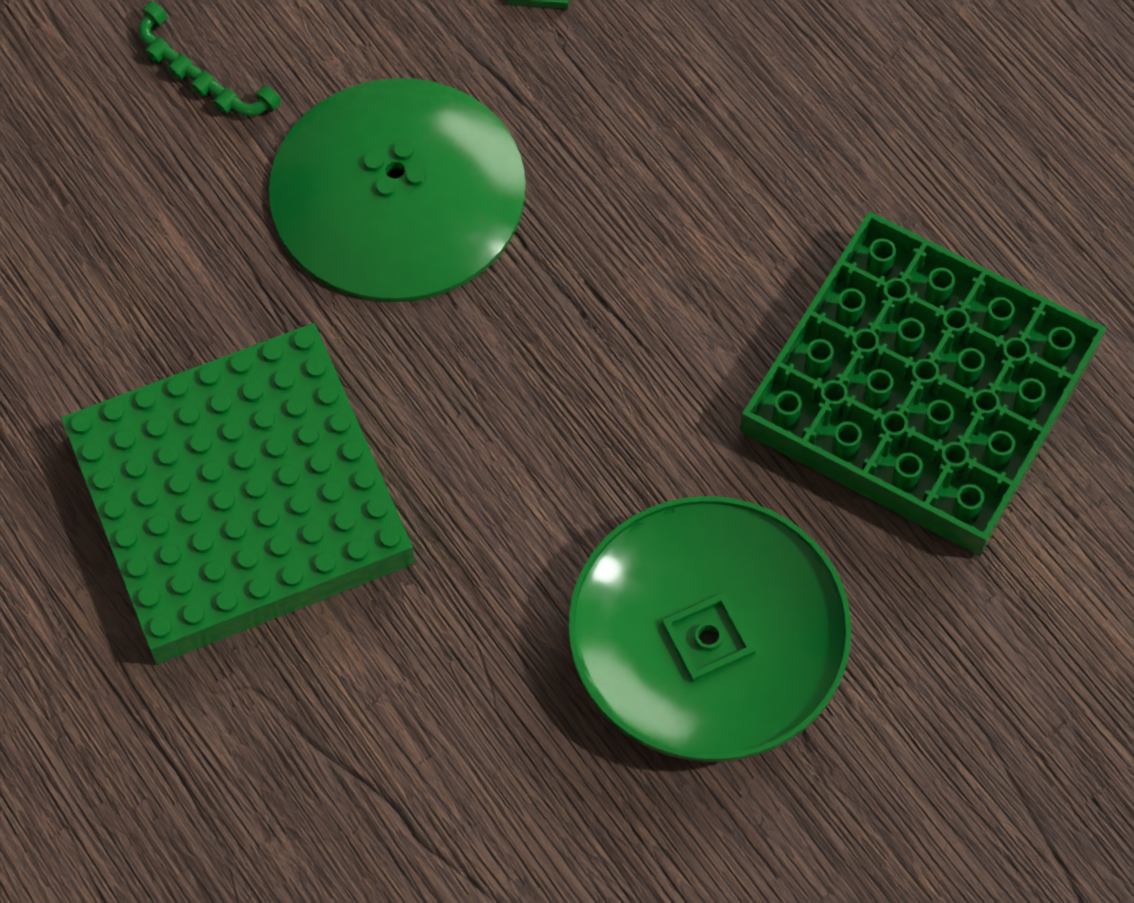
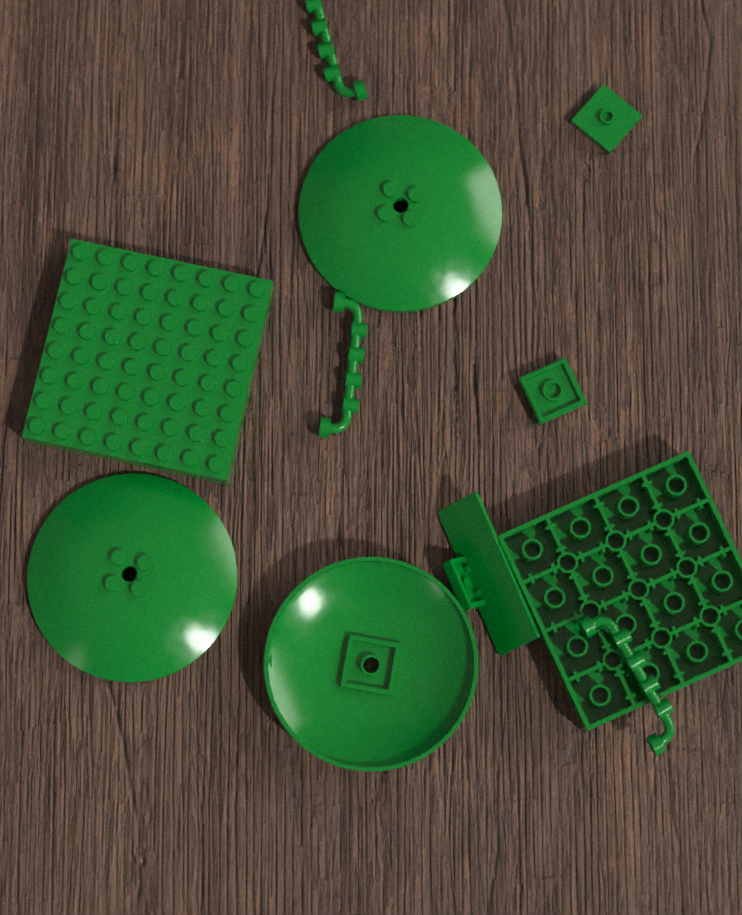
camera: 35 degrees right, 15 degrees up
(388, 783) = (141, 625): none -> green dish
(455, 348) = (352, 379): none -> green bar
(685, 253) = (552, 391): none -> green plate
(759, 464) = (483, 575): none -> green bracket
(1010, 452) = (648, 684): none -> green bar

